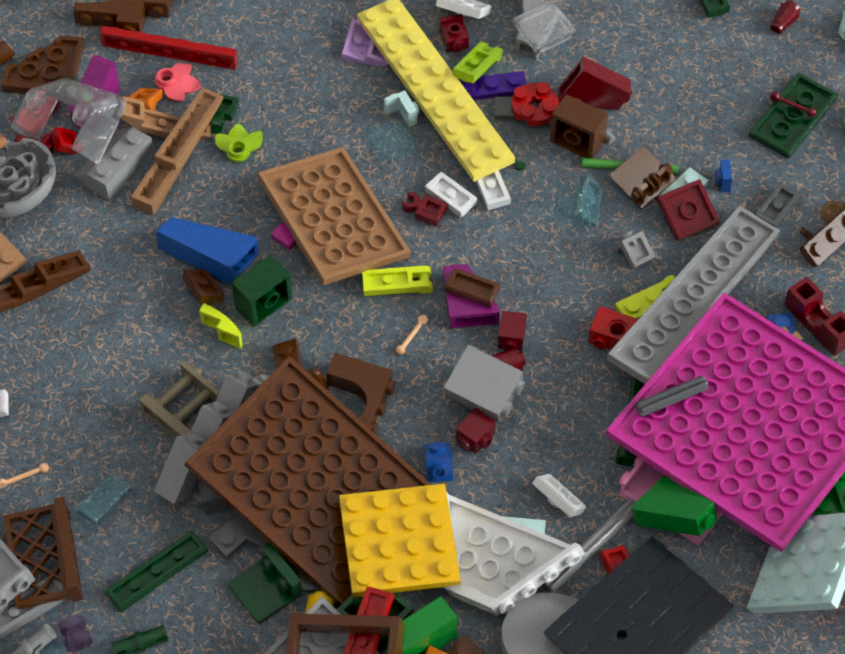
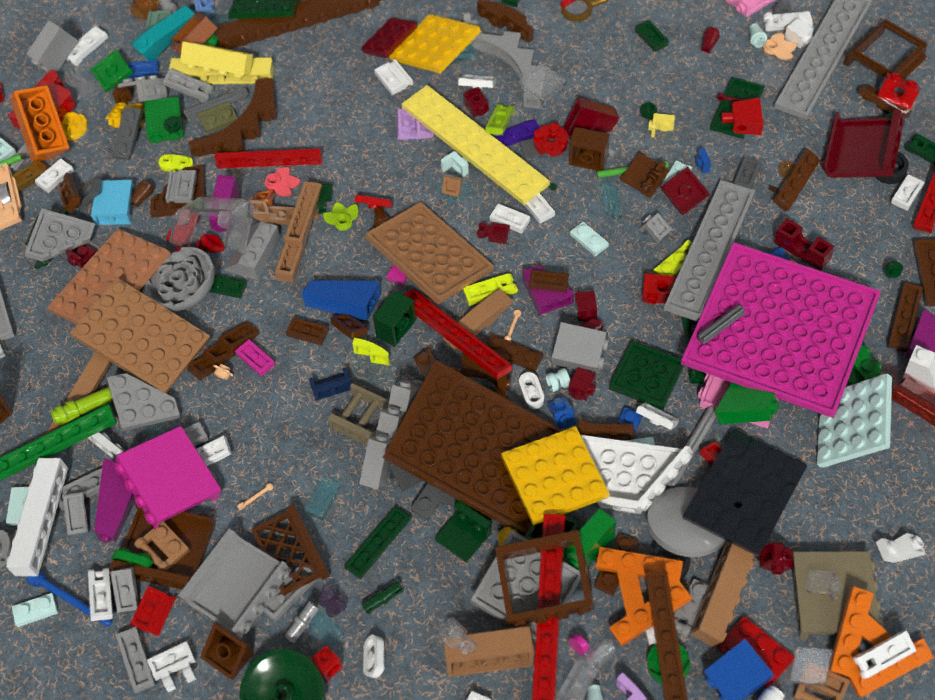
camera: 10 degrees left, 0 degrees up
(29, 308) = (222, 371): none -> light nougat plate
(47, 59) = (181, 186): none -> light grey plate
(51, 26) = (175, 162): none -> neon yellow plate
(69, 200) = (228, 286): none -> dark green plate
(74, 300) = (255, 358): none -> dark pink plate
(150, 281) = (307, 331): none -> reddish brown plate
(157, 357) = (331, 385): none -> dark blue hinge
(284, 135) = (373, 202): none -> red plate
(285, 155) = (379, 217): none -> reddish brown cone
(334, 331) = (459, 336): none -> red plate
(366, 316) = (484, 313): none -> medium nougat slope
(389, 135) = (452, 185): none -> medium nougat tile
(404, 371) = (518, 354): none -> reddish brown plate
(408, 425) = (532, 391): none -> white plate
(452, 418) = (558, 380): none -> light aqua wheel
(487, 499) = (604, 430): none -> reddish brown plate
(522, 491) = (630, 417): none -> blue plate
(545, 244) = (589, 238): none -> light aqua plate
(562, 439) = (647, 375): none -> dark green plate
(675, 93) = (647, 110): none -> dark green plate
(686, 112) = (662, 122): none -> light yellow bracket
(796, 130) = (745, 117): none -> red torso

